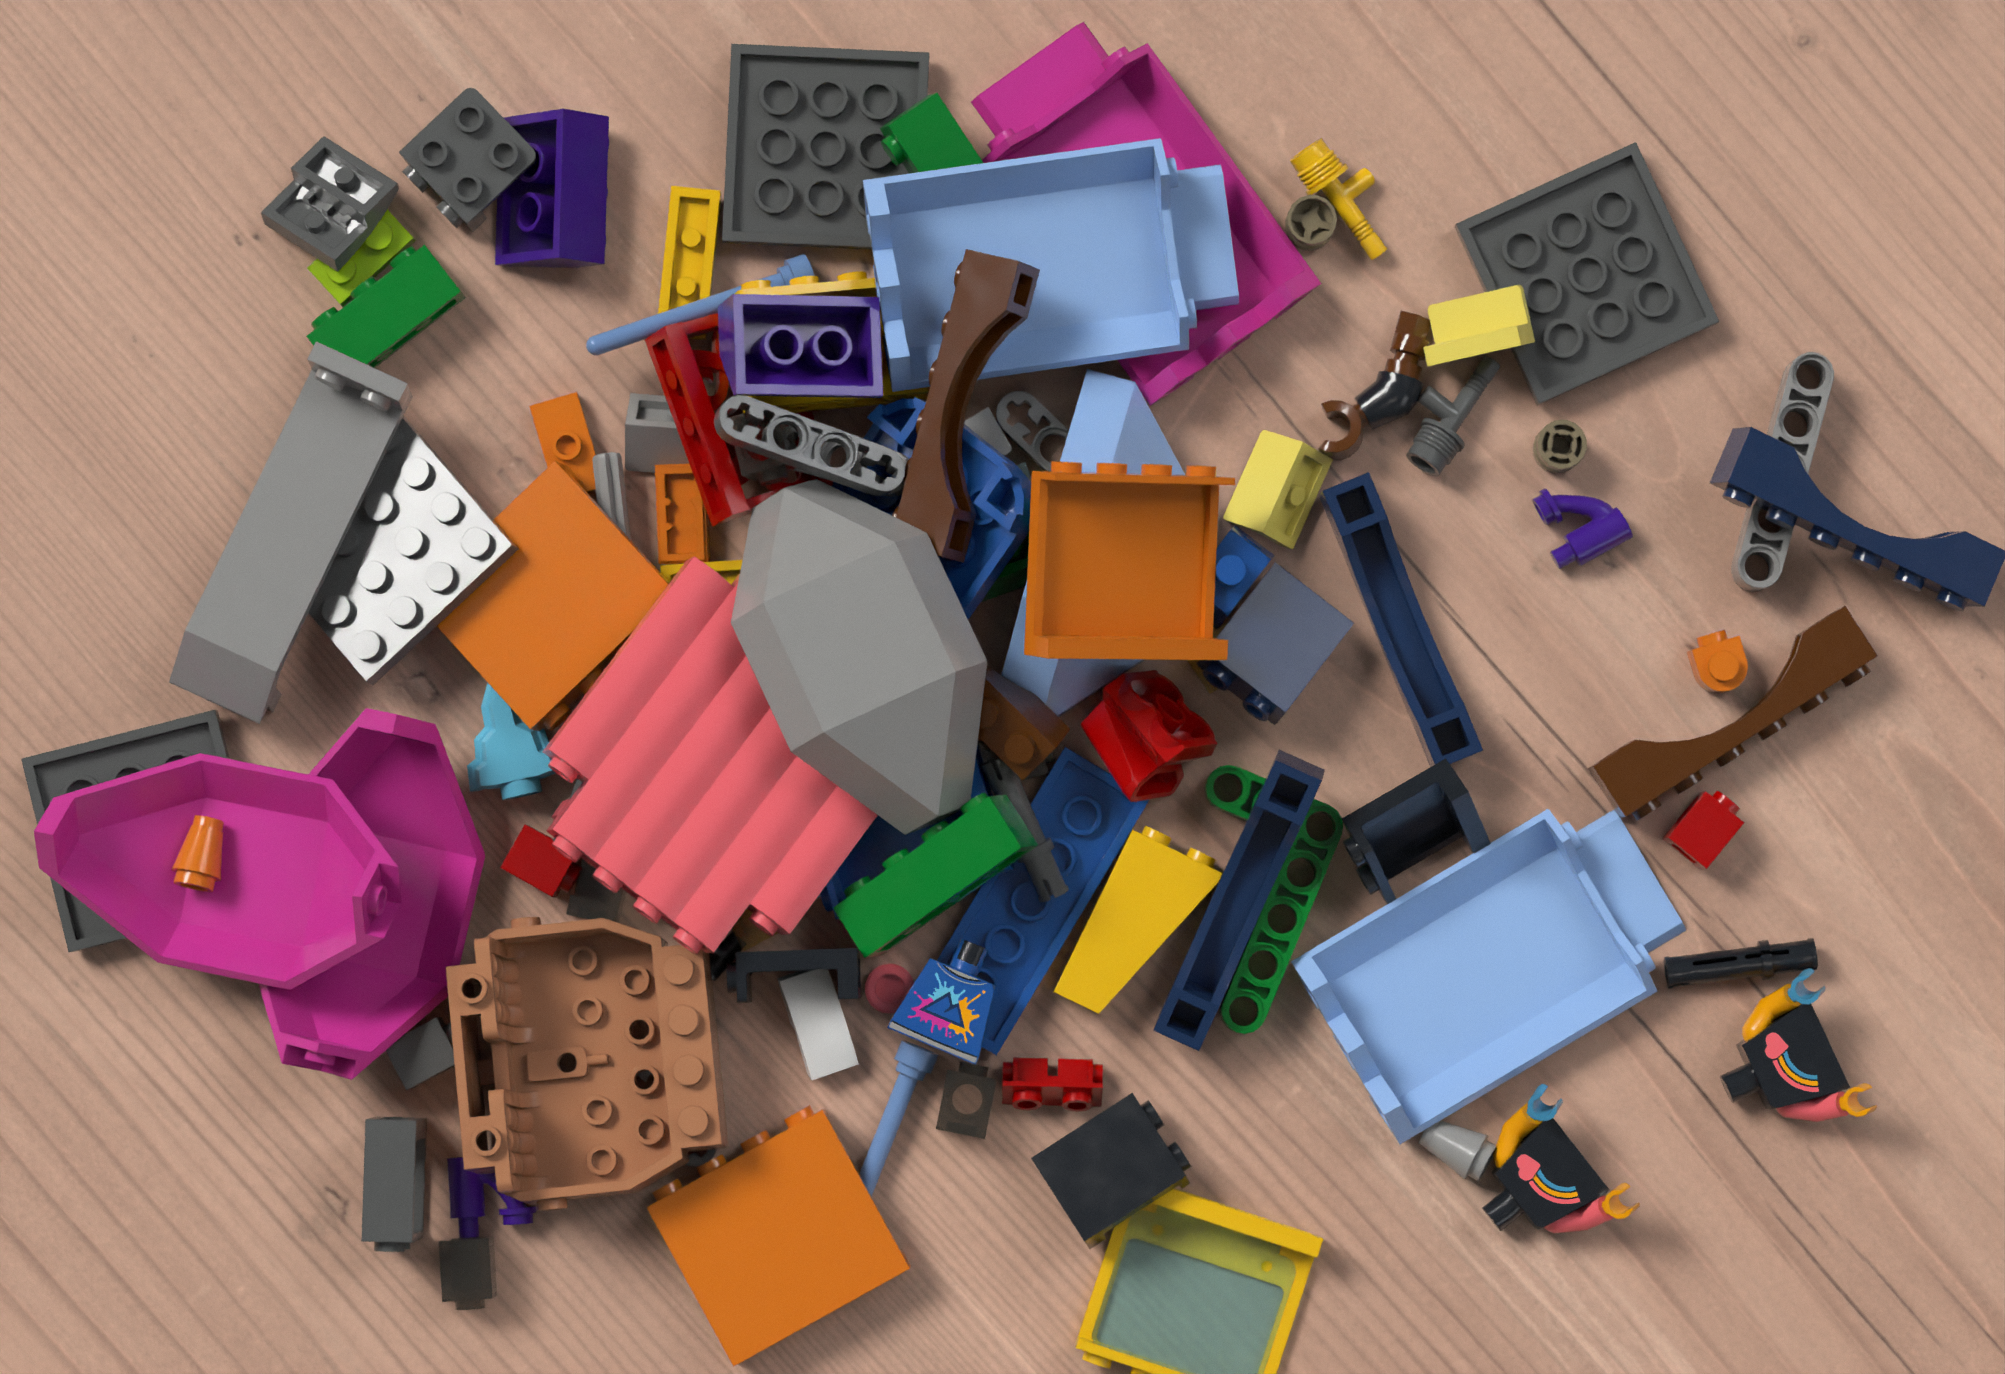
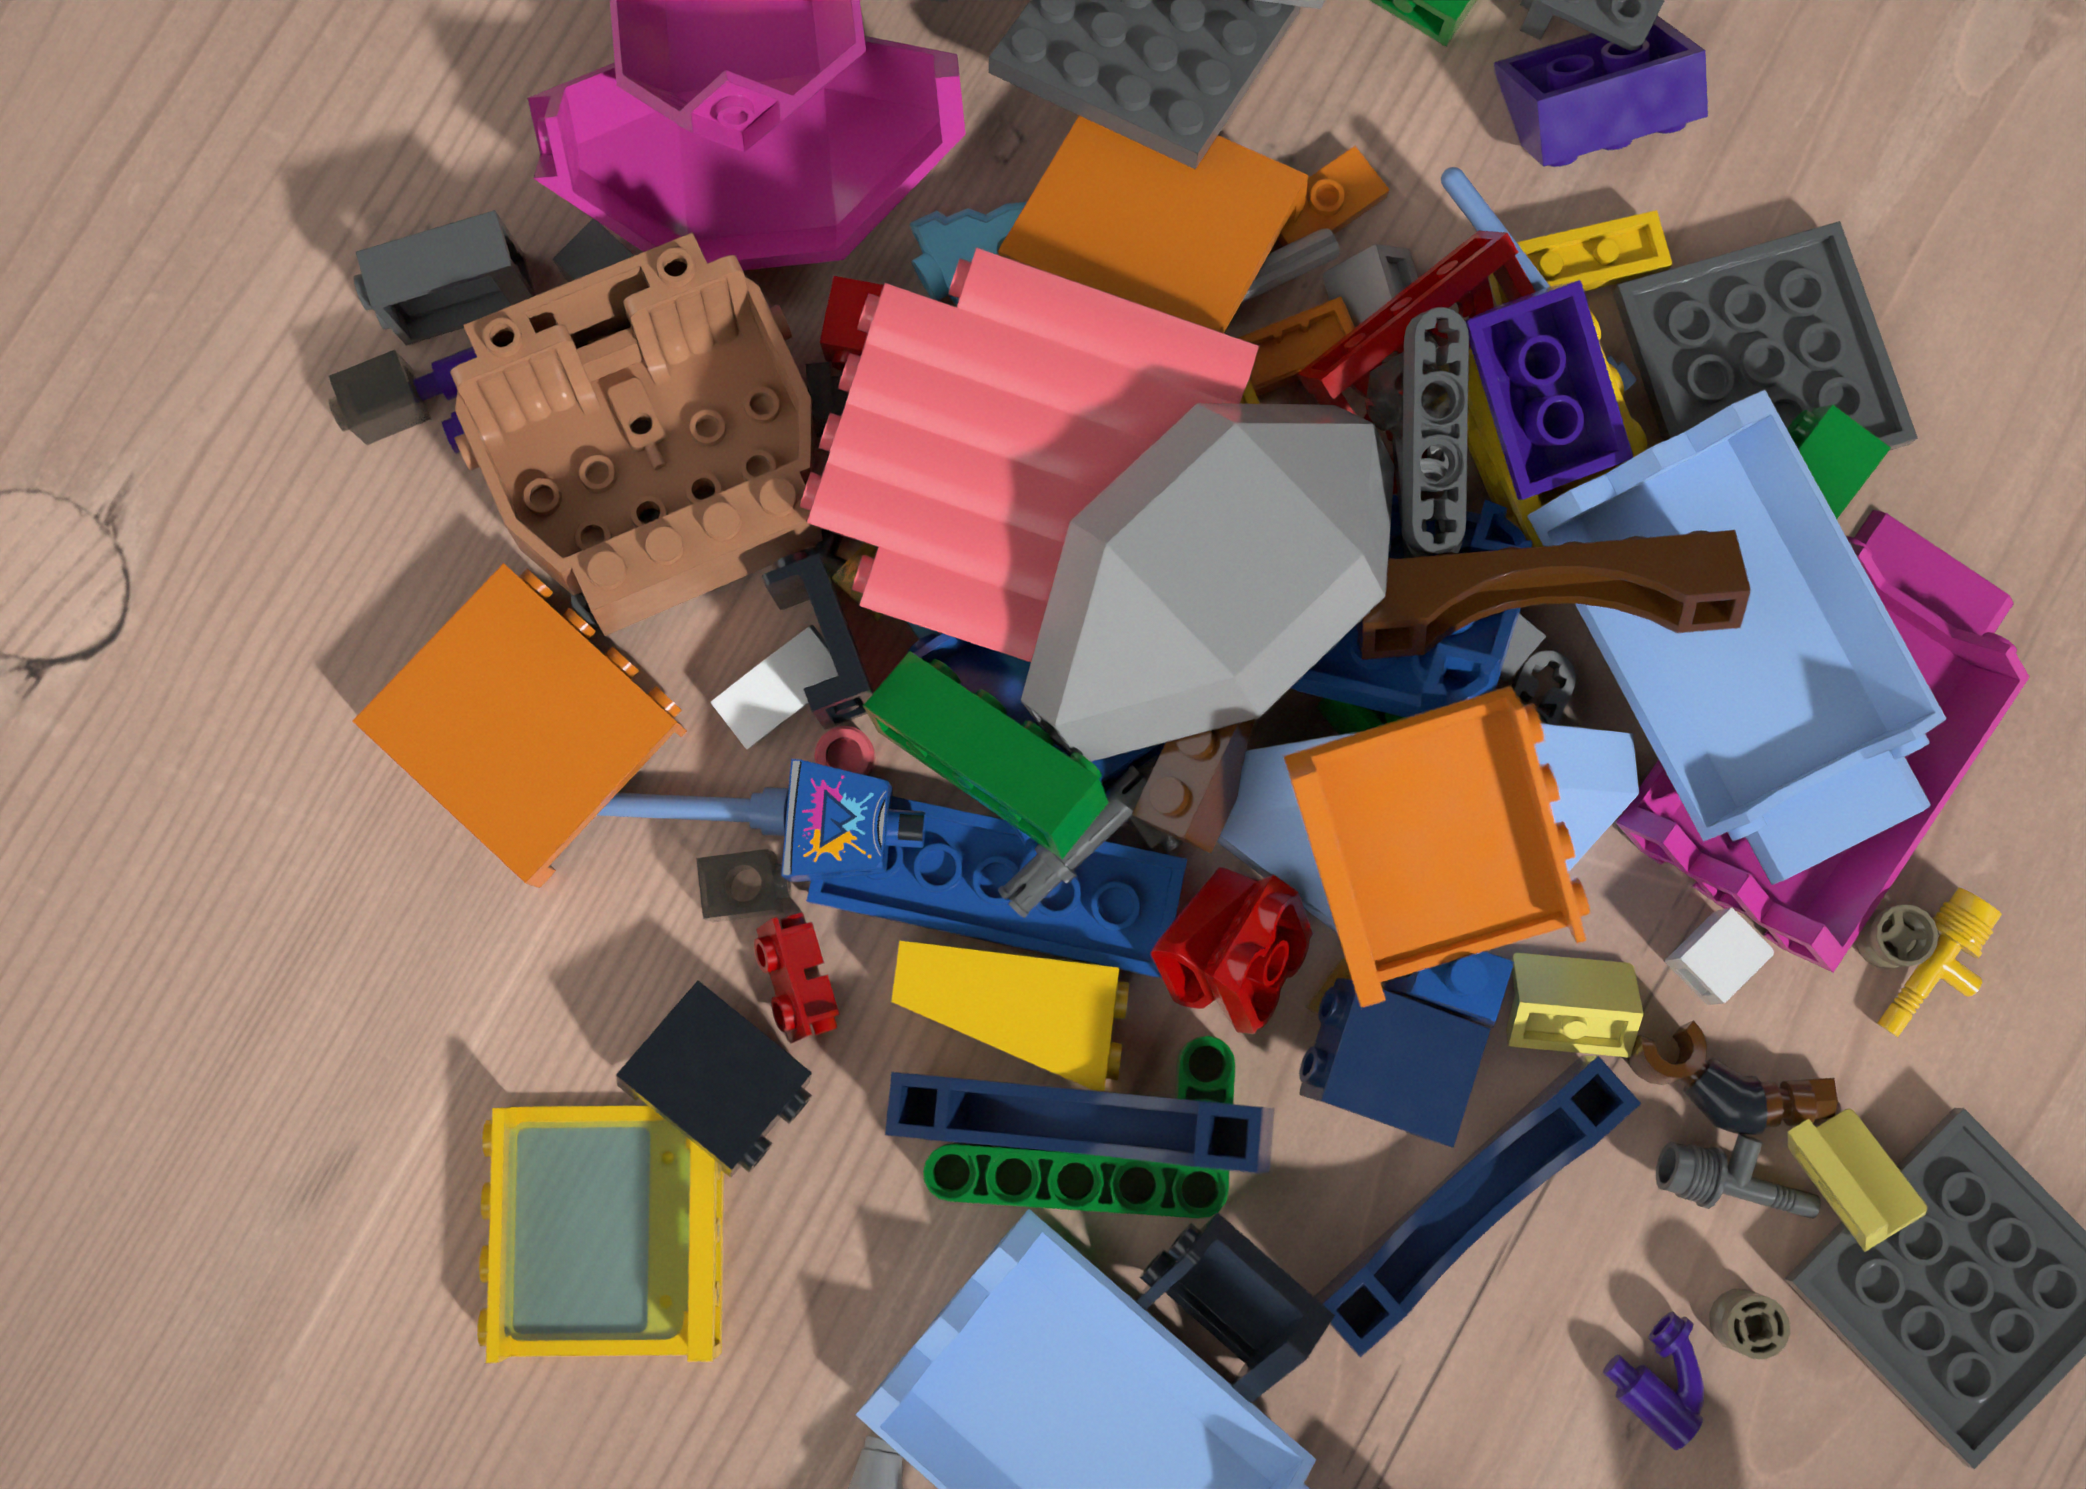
camera: 75 degrees right, 5 degrees down
(1279, 363) = (1720, 956): none -> white panel

